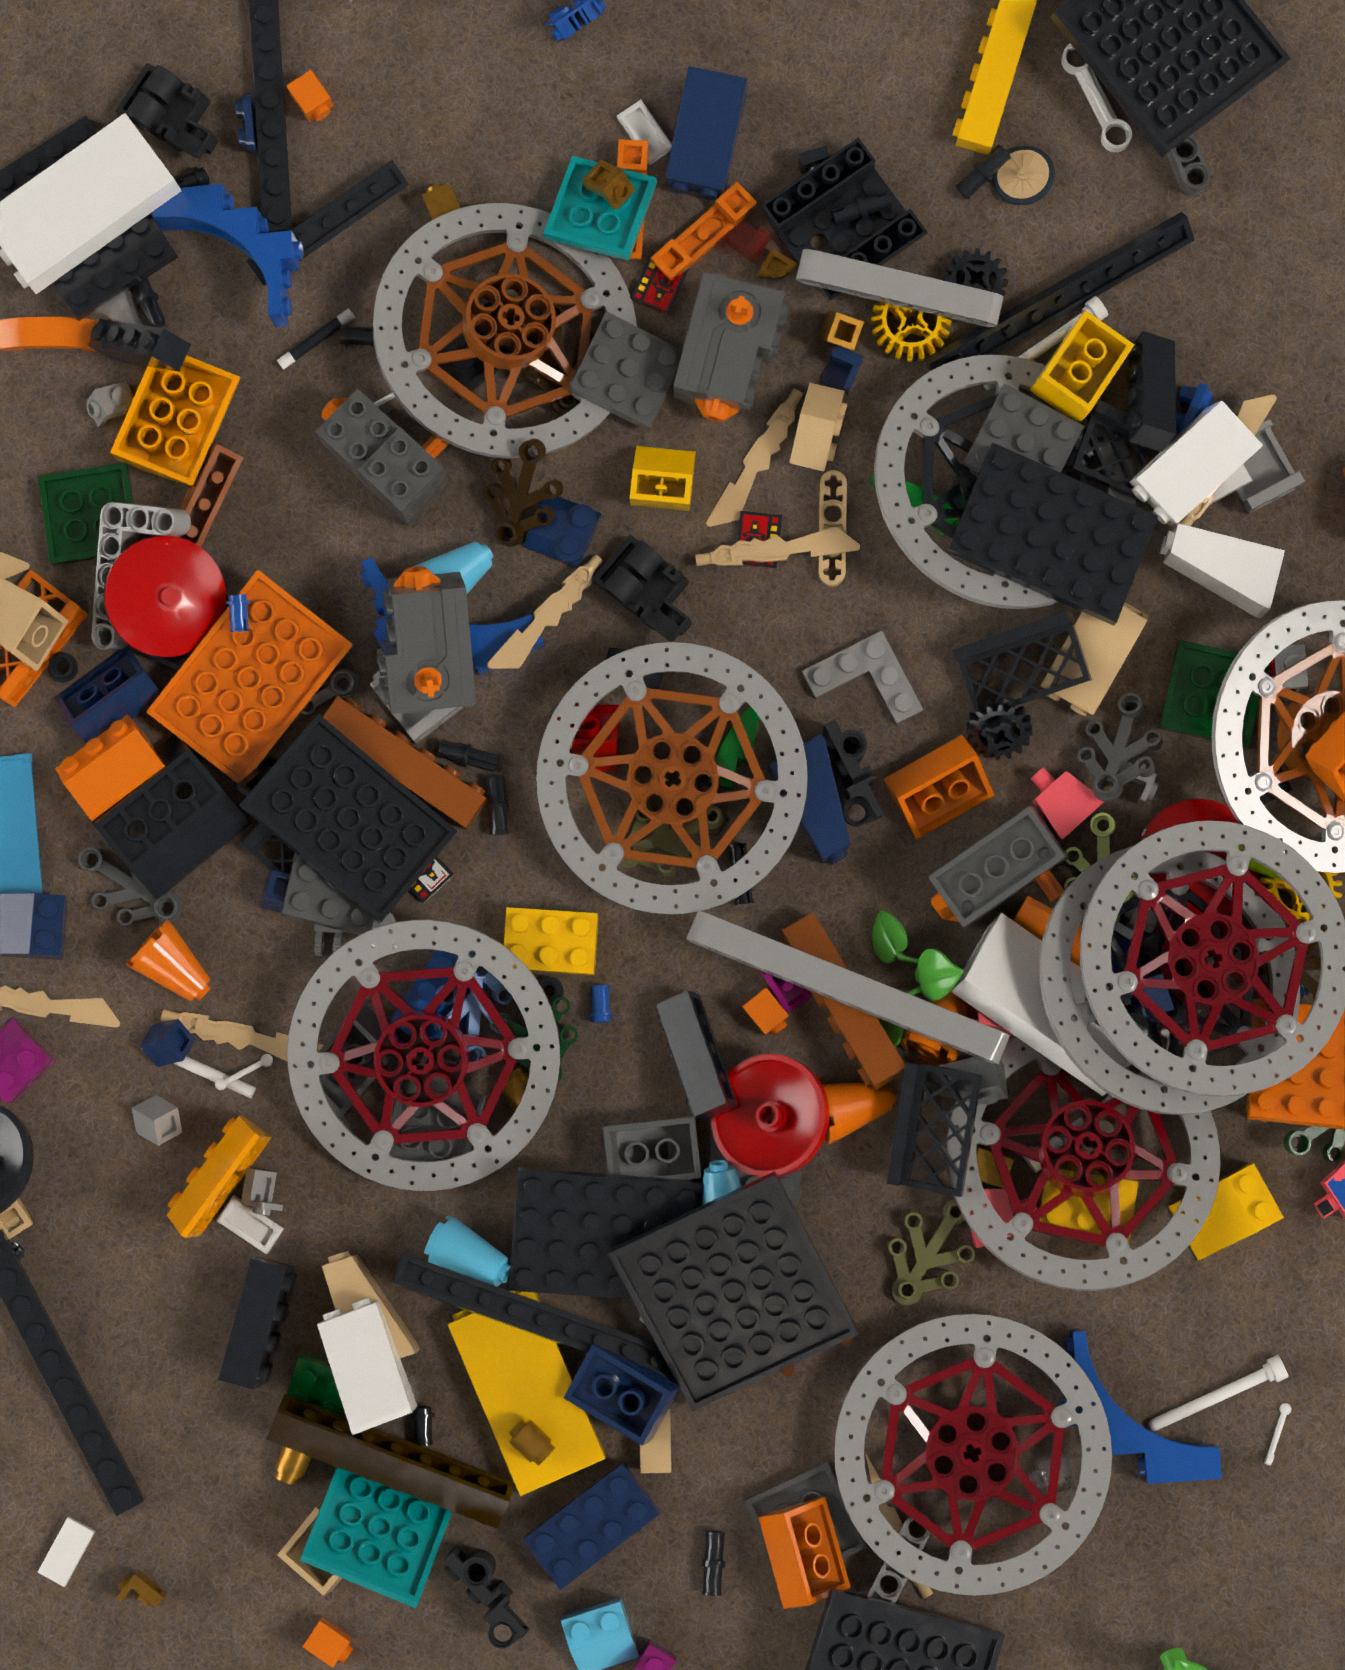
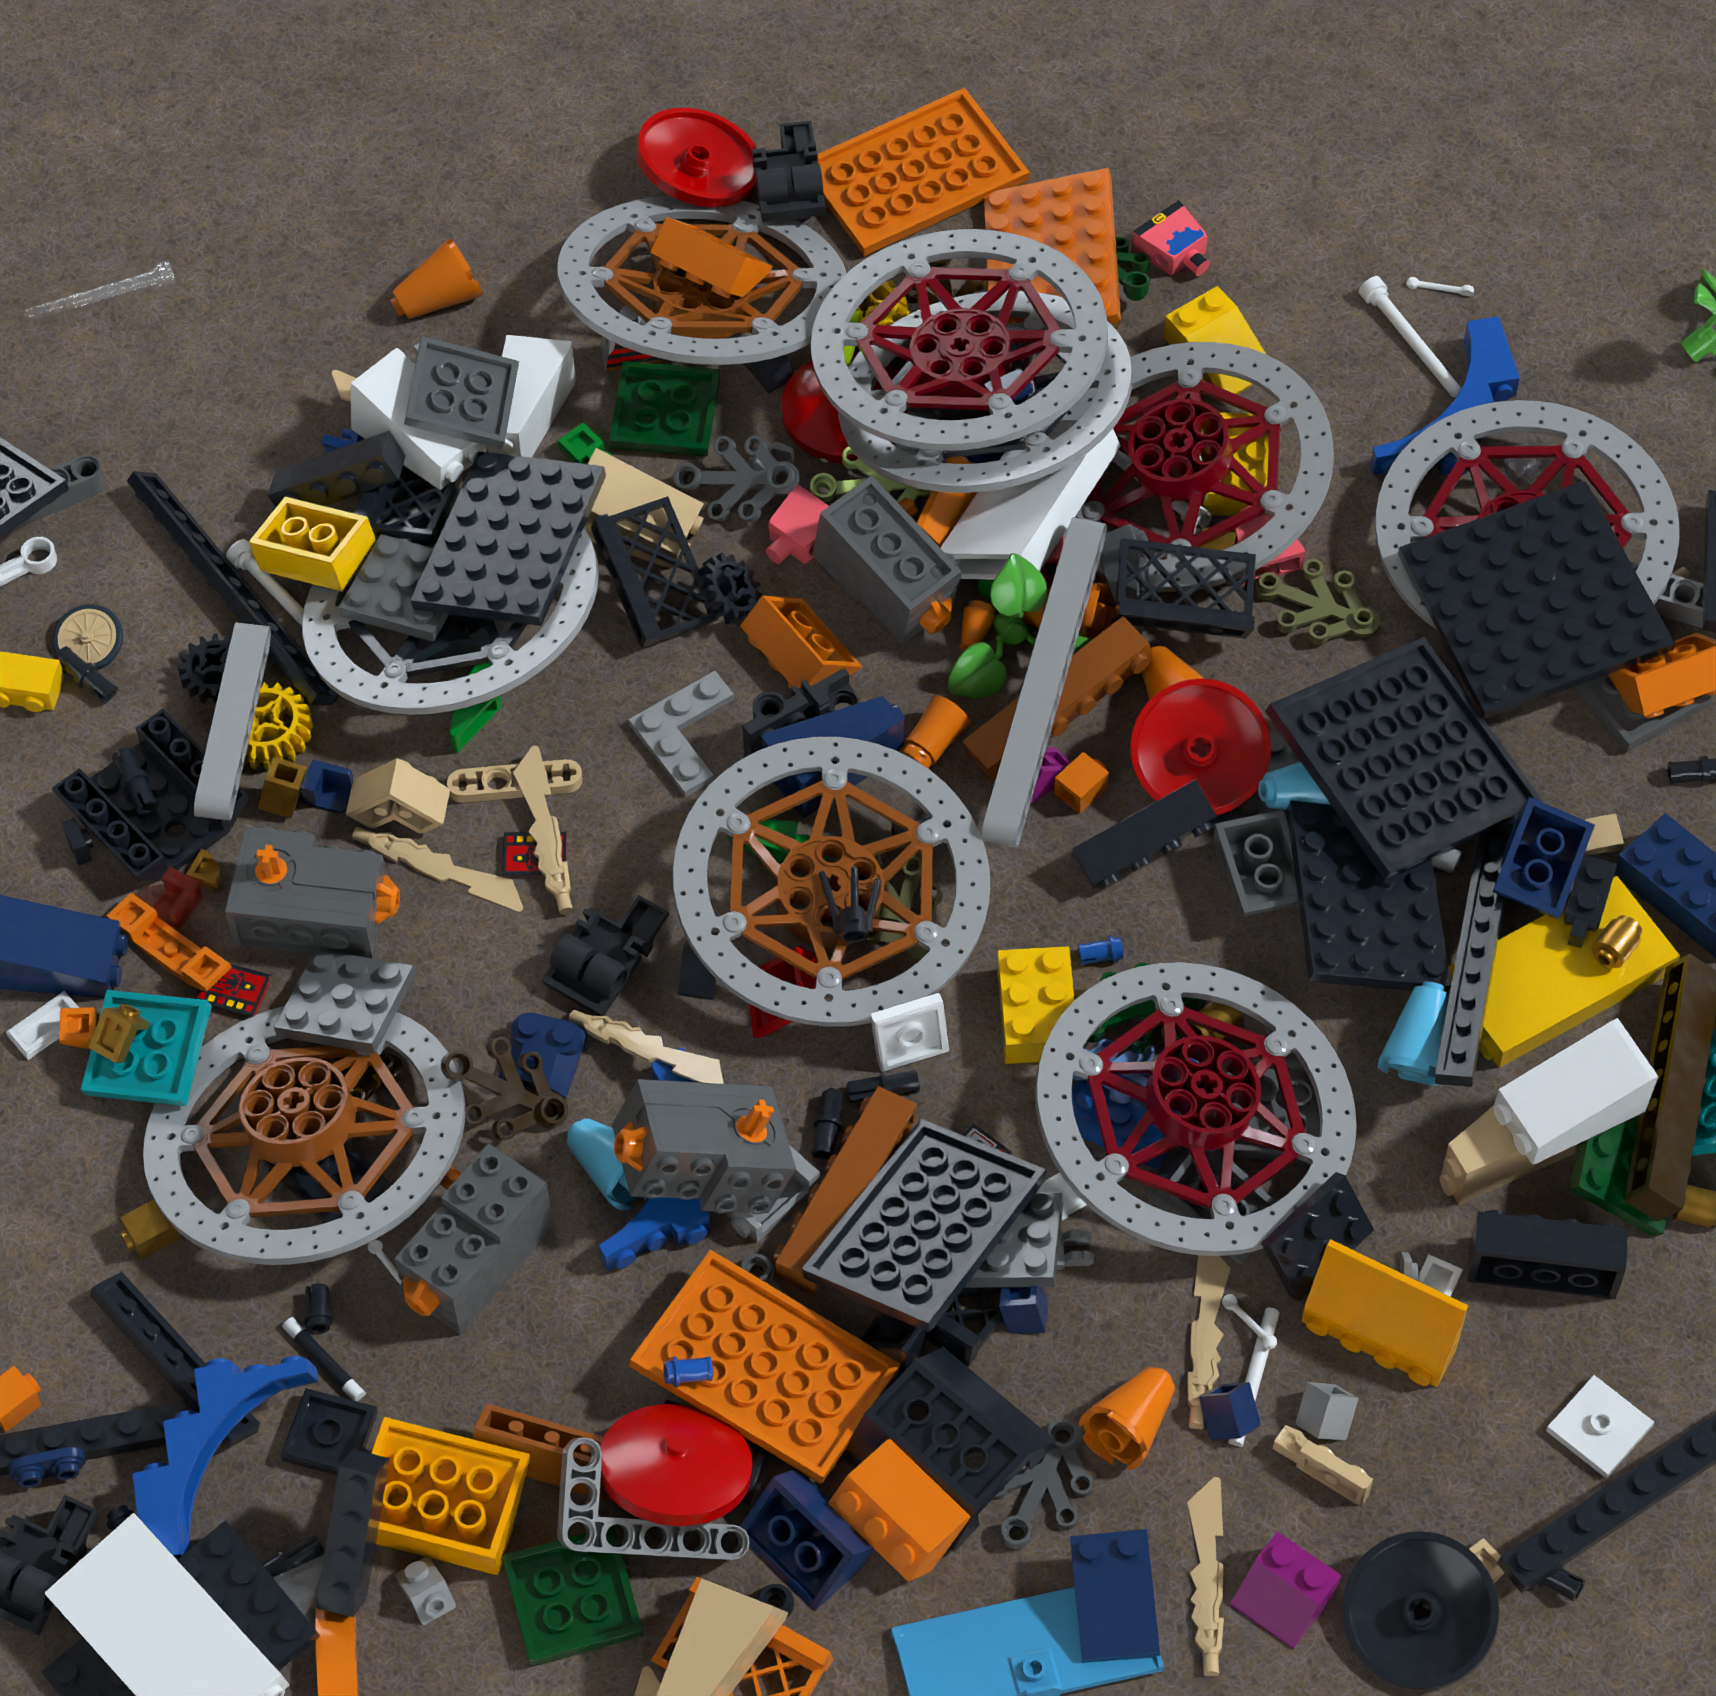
camera: 105 degrees left, 25 degrees down
(113, 1107) = (1323, 1465): none -> tan hinge
(116, 1338) = (1600, 1426): none -> white plate
(248, 339) = (327, 1431): none -> black plate
(301, 1138) = (1302, 1238): none -> black plate
(531, 830) = (910, 1032): none -> white plate
(581, 1427) = (1588, 897): none -> black hinge
(624, 790) = (853, 923): none -> black plant
(662, 478) = (471, 951): yellow slope -> none
(829, 889) = (935, 731): none -> orange plant
(888, 1444) = (1535, 599): none -> black plate
(944, 941) = (976, 623): none -> orange cone
(1176, 617) = (580, 444): none -> green plate
(1209, 501) = (461, 392): none -> dark grey plate

